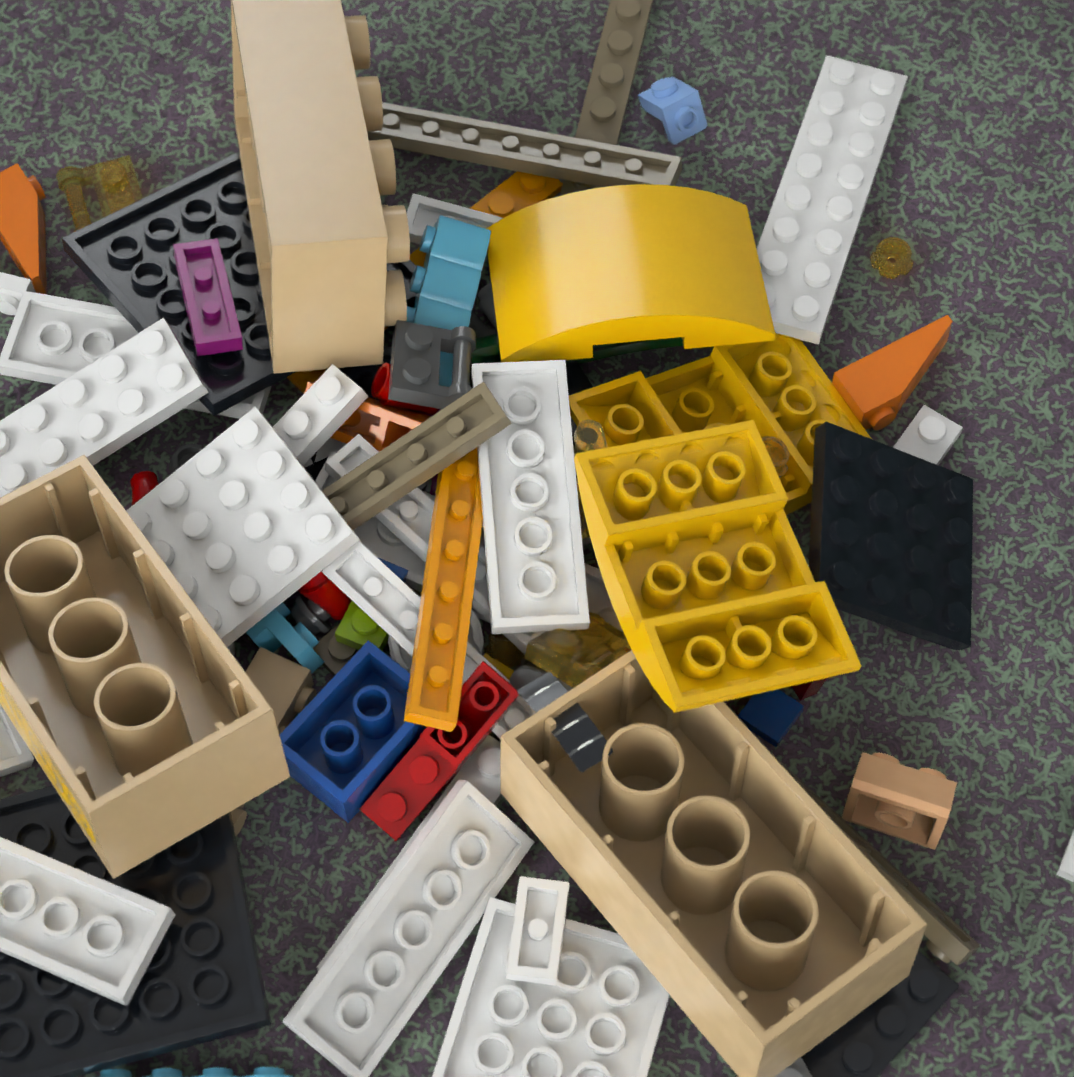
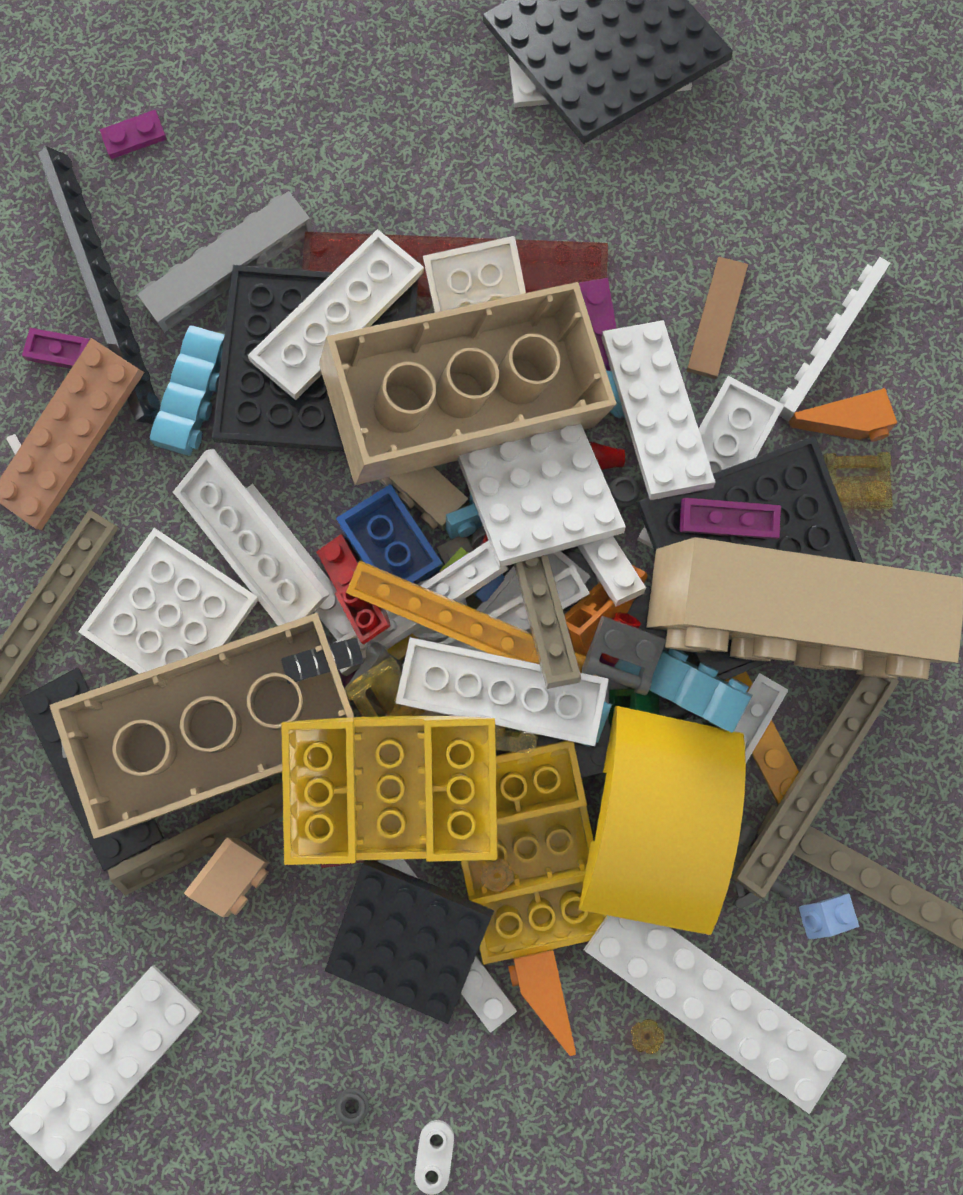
camera: 110 degrees right, 15 degrees up
(537, 930) = (218, 615): white plate -> none

